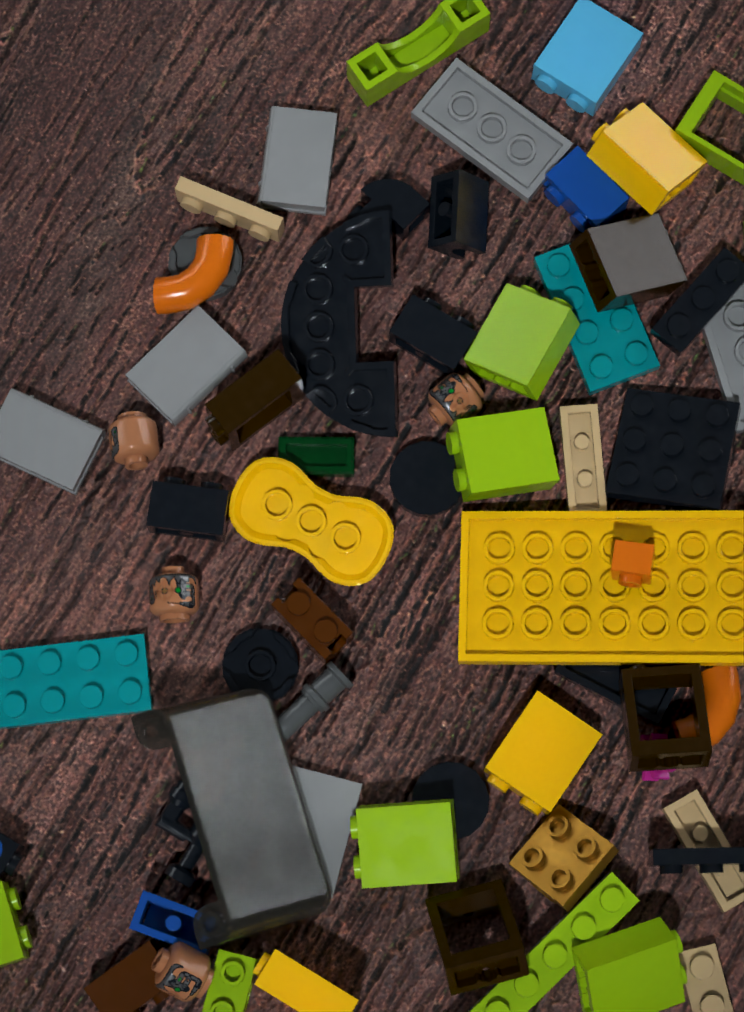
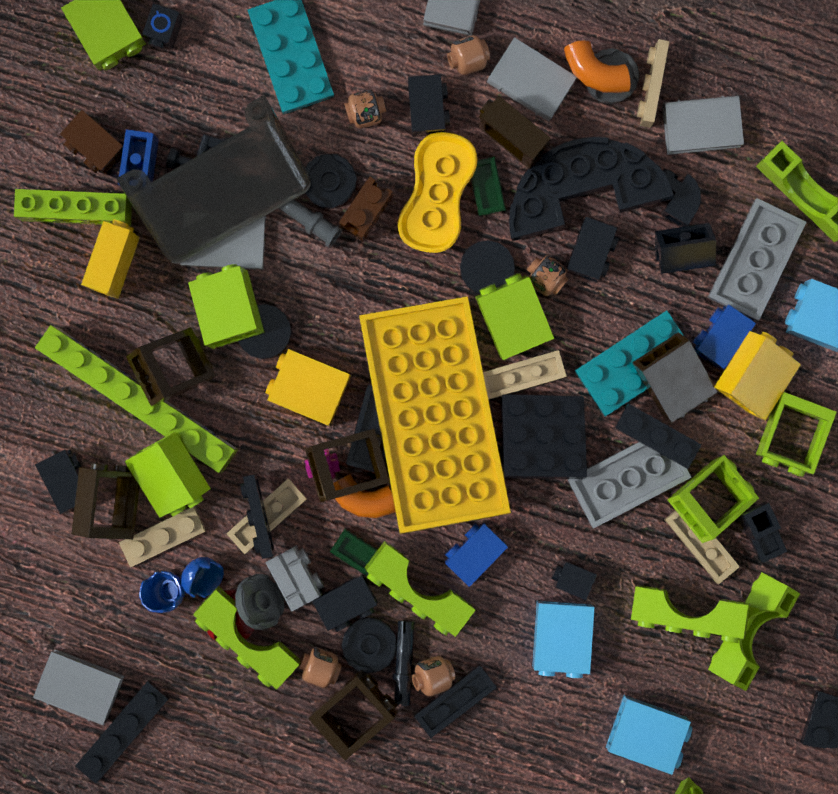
camera: 80 degrees right, 10 degrees up
(182, 971) = (103, 171): nougat head -> none
(522, 340) = (601, 313): lime brick -> none
(563, 858) = (239, 416): pearl gold plate -> none
(632, 563) = (449, 421): orange plate -> none

